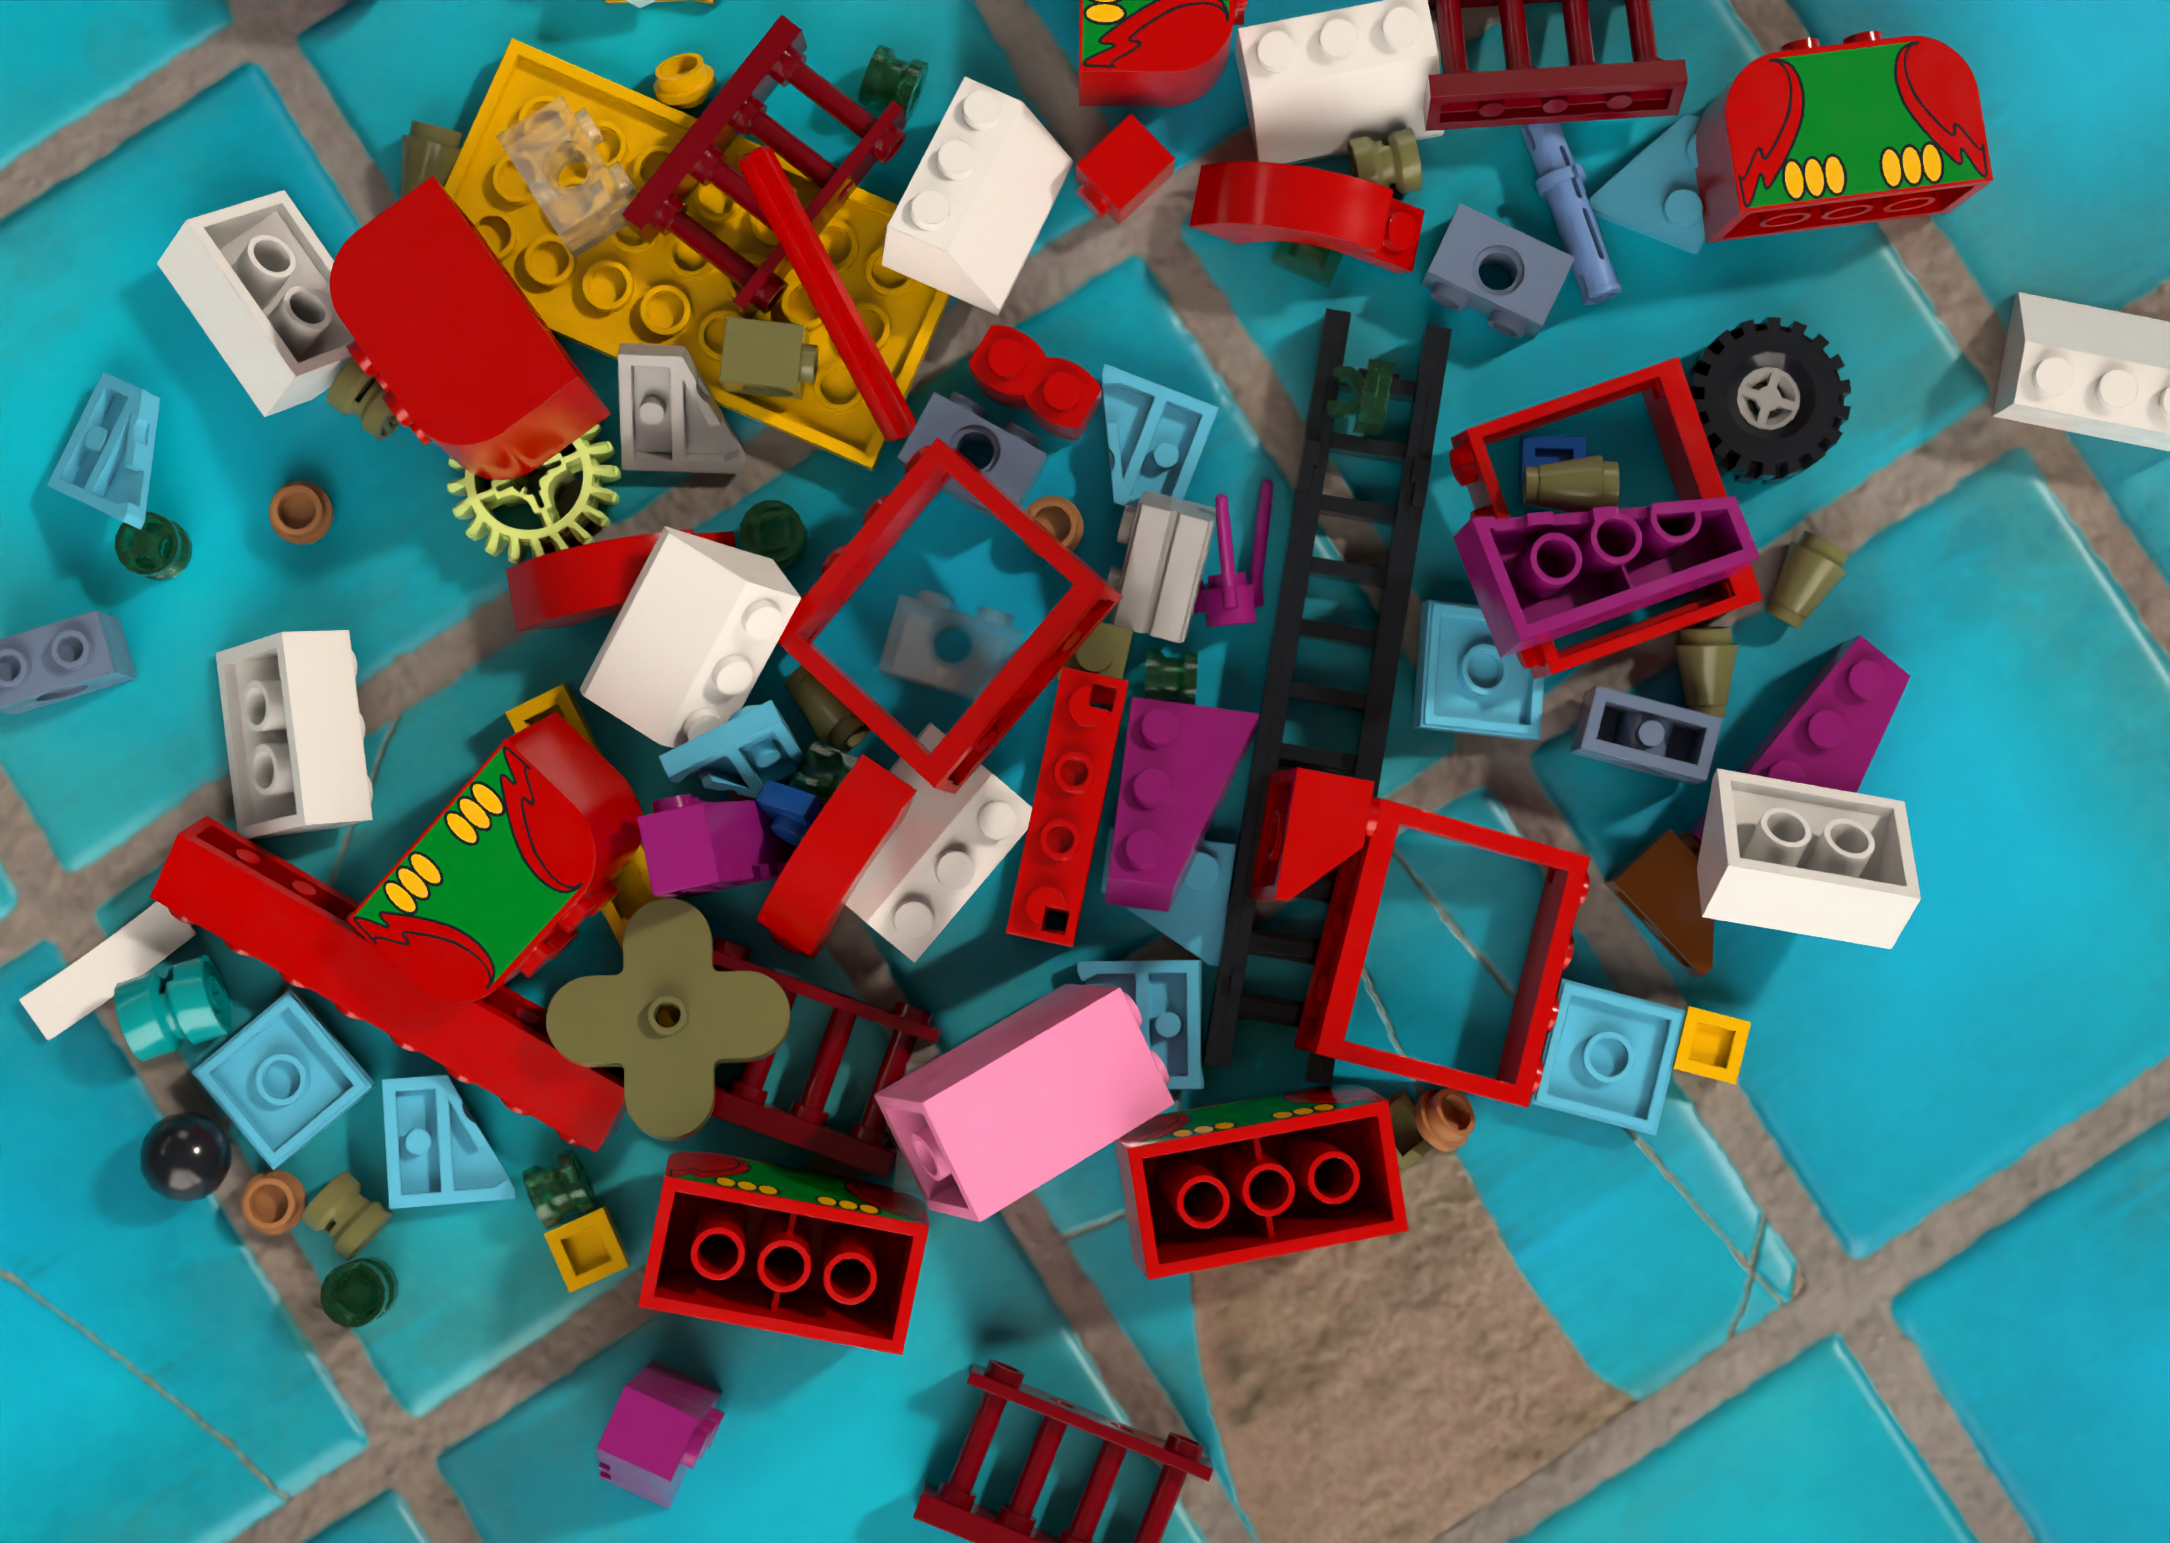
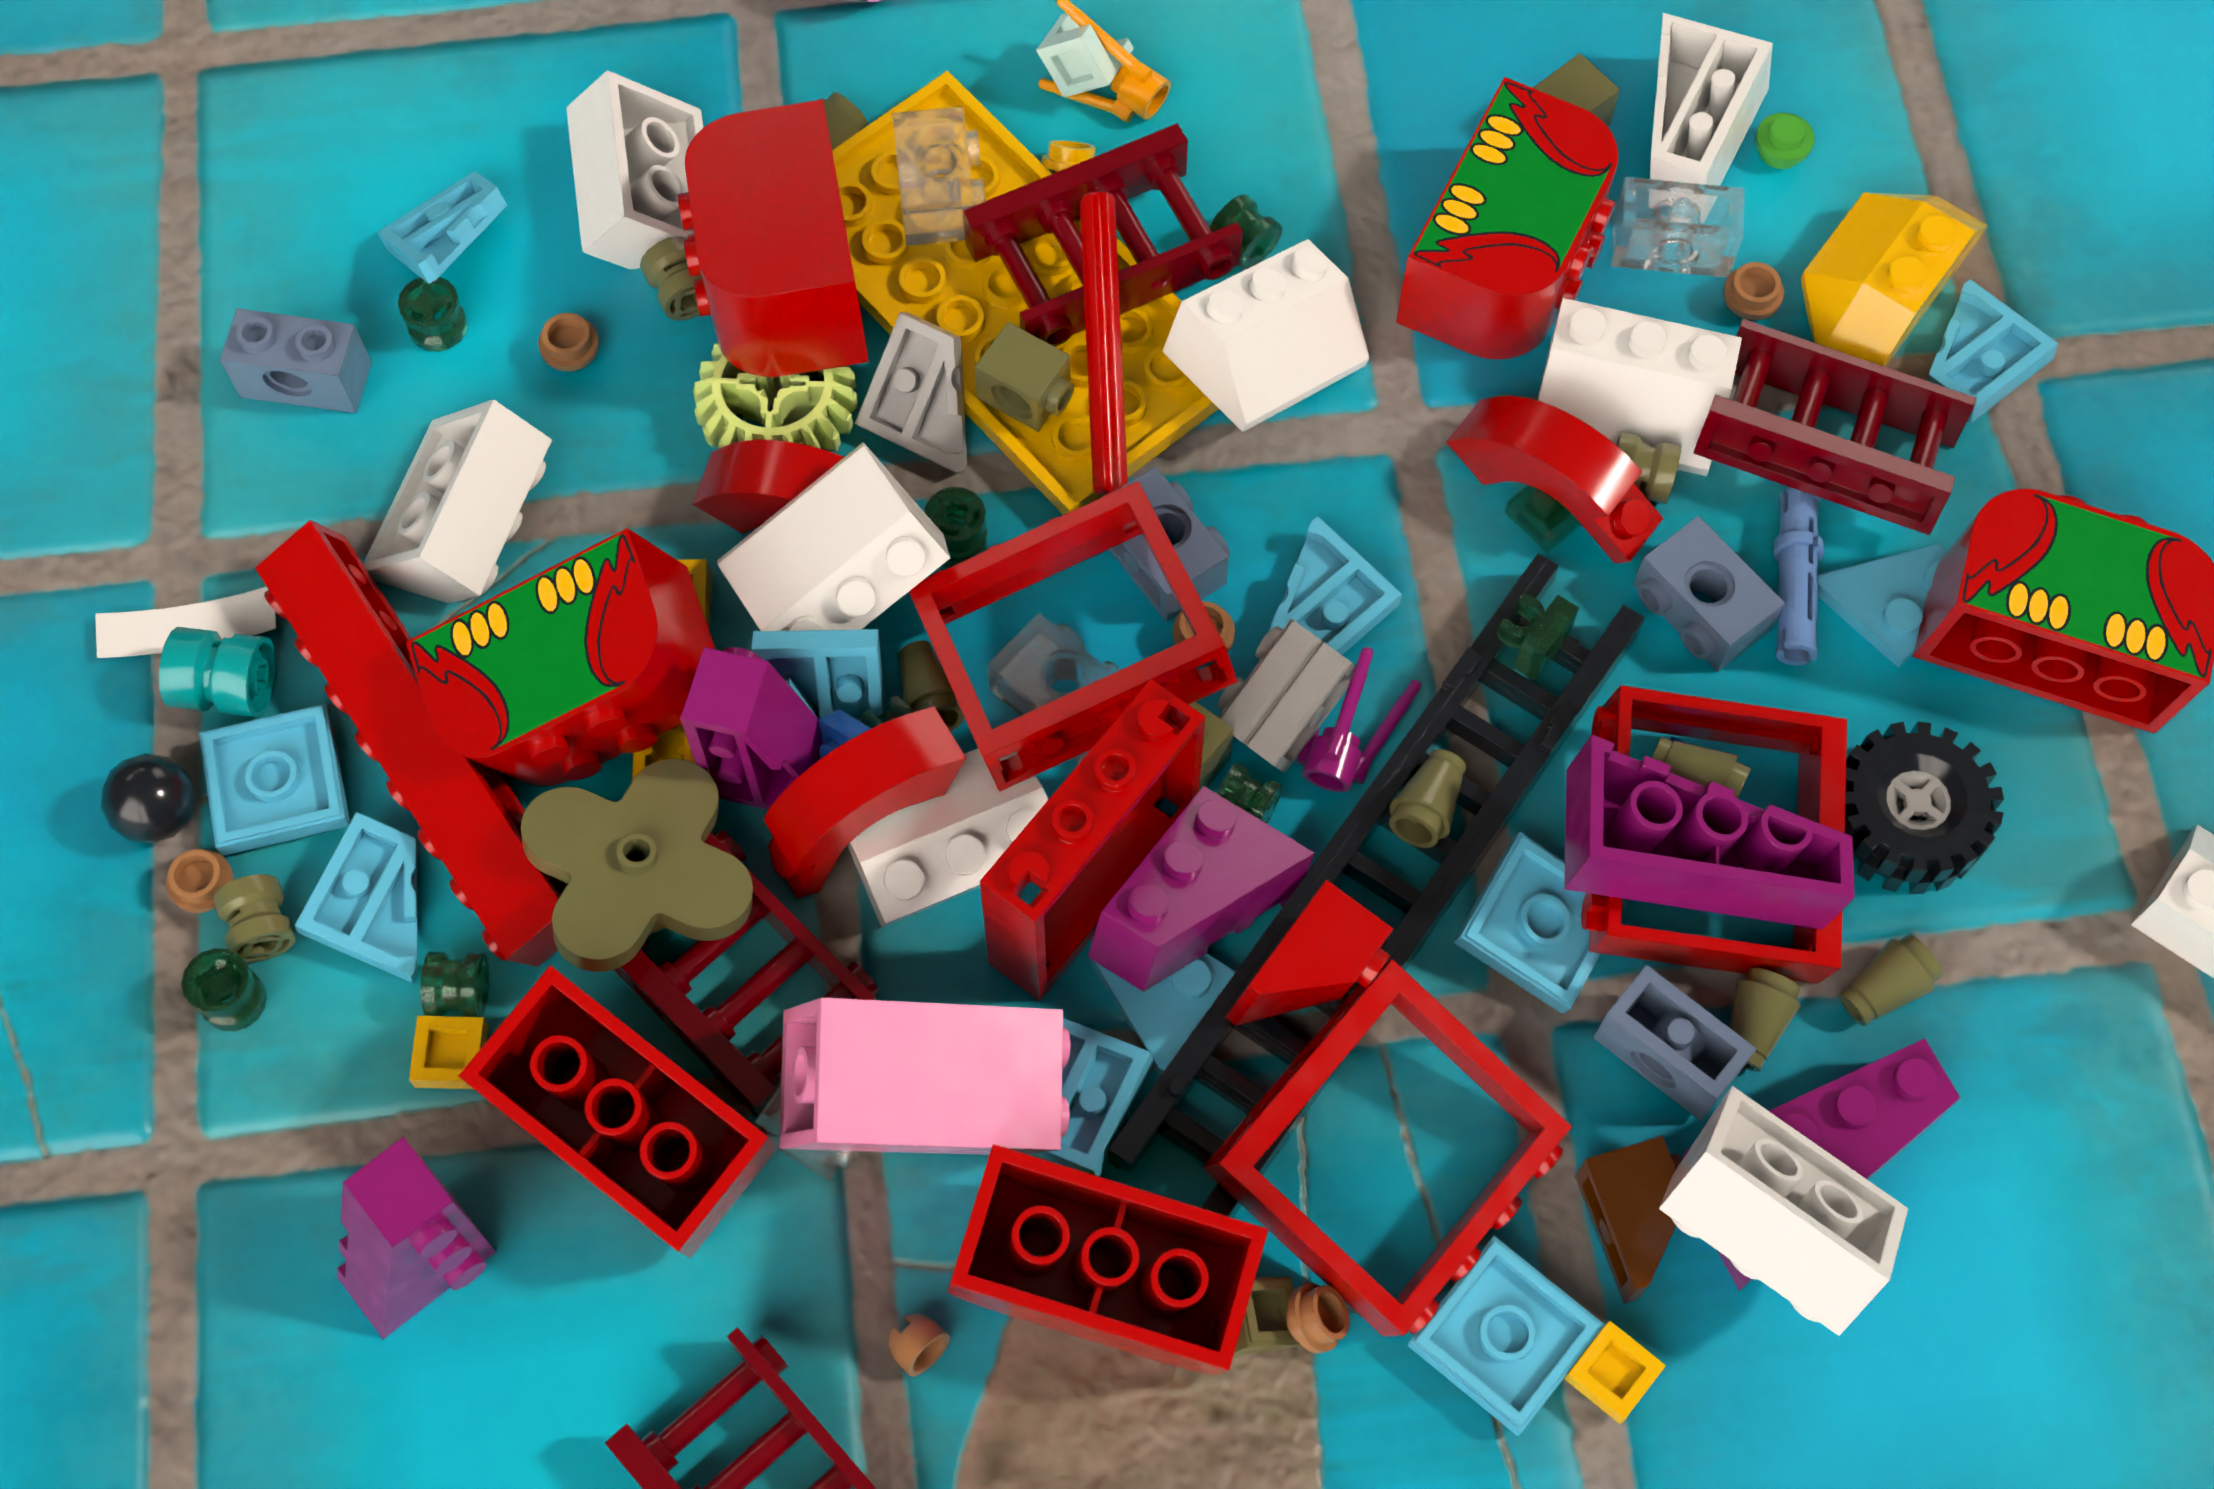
camera: 25 degrees right, 20 degrees down
(1020, 376) = (1249, 505): red brick -> none
(1123, 171) = (1409, 376): red brick -> none
(1123, 1301) = (918, 1344): none -> medium nougat hinge
(1336, 608) = (1428, 800): none -> olive cone

